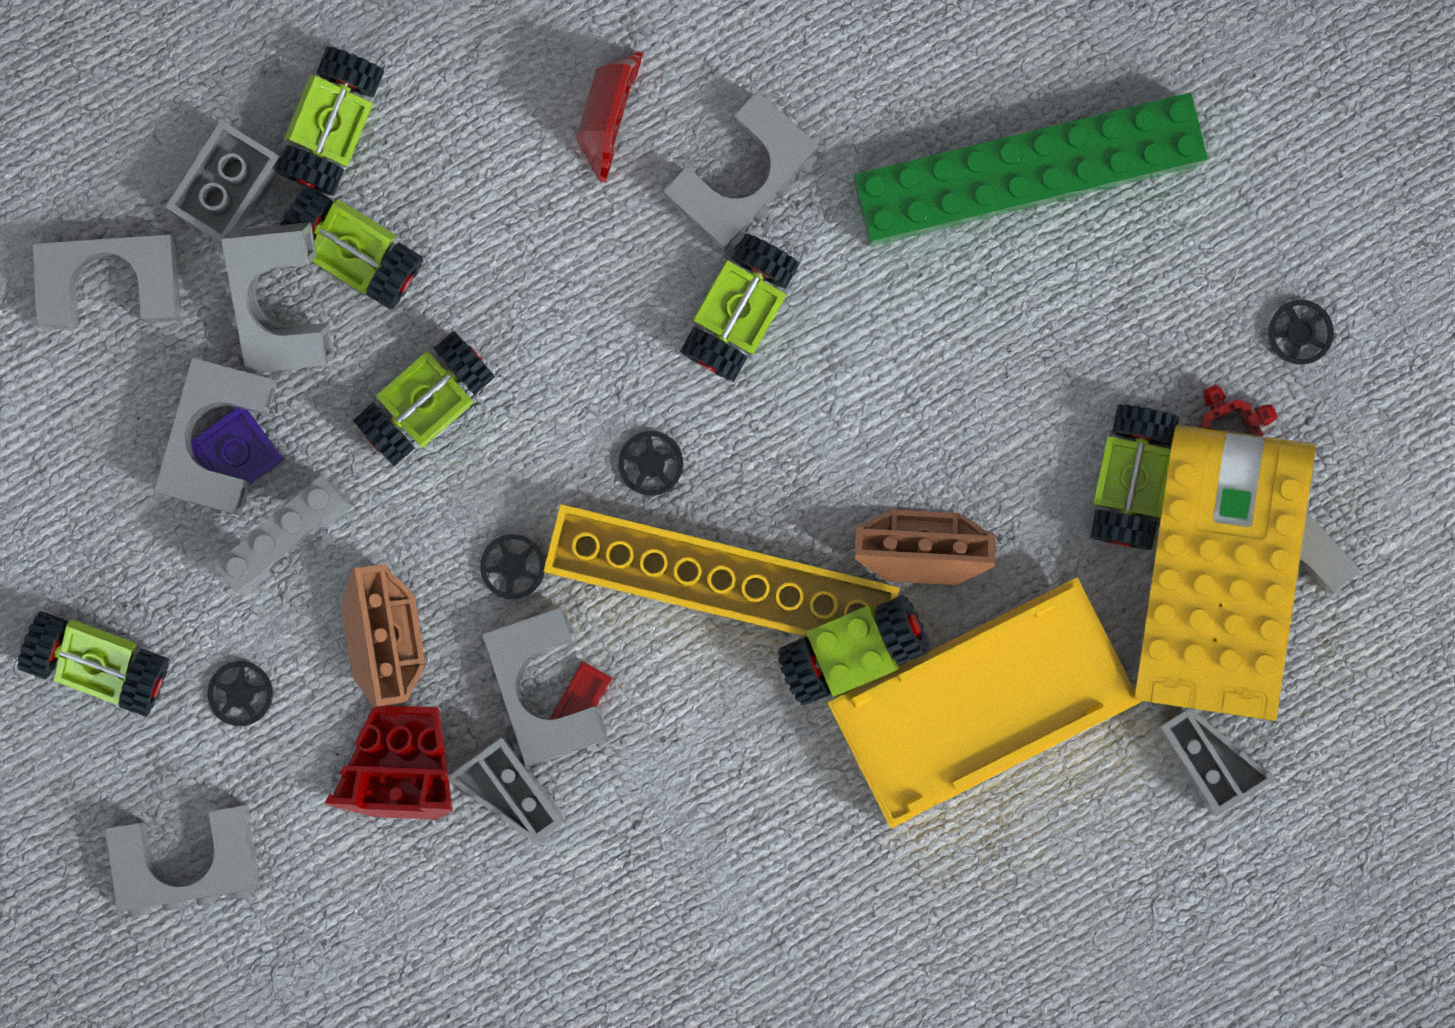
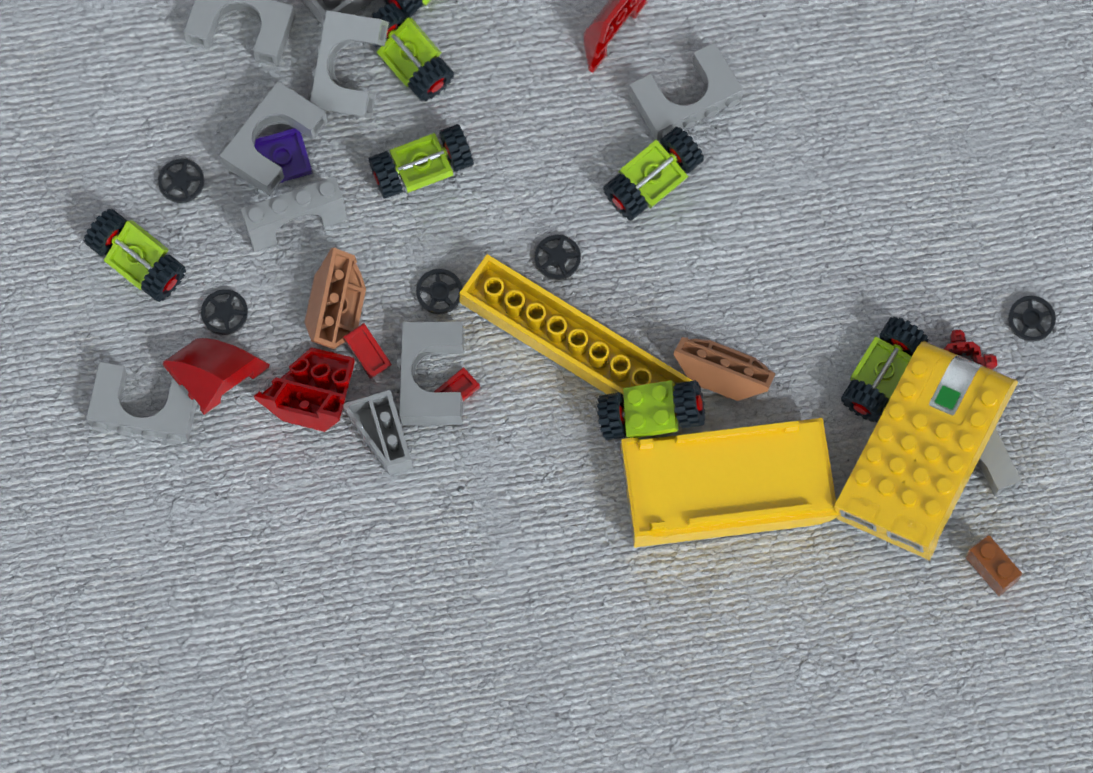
camera: 15 degrees right, 15 degrees down
(112, 530) = (181, 180): none -> black wheel
(255, 789) = (211, 369): none -> red wedge
(448, 685) = (367, 350): none -> red tile
(1030, 169) = (881, 152): green brick -> none
(1211, 762) = (875, 576): light grey wedge -> none
(1358, 693) = (993, 565): none -> dark orange brick

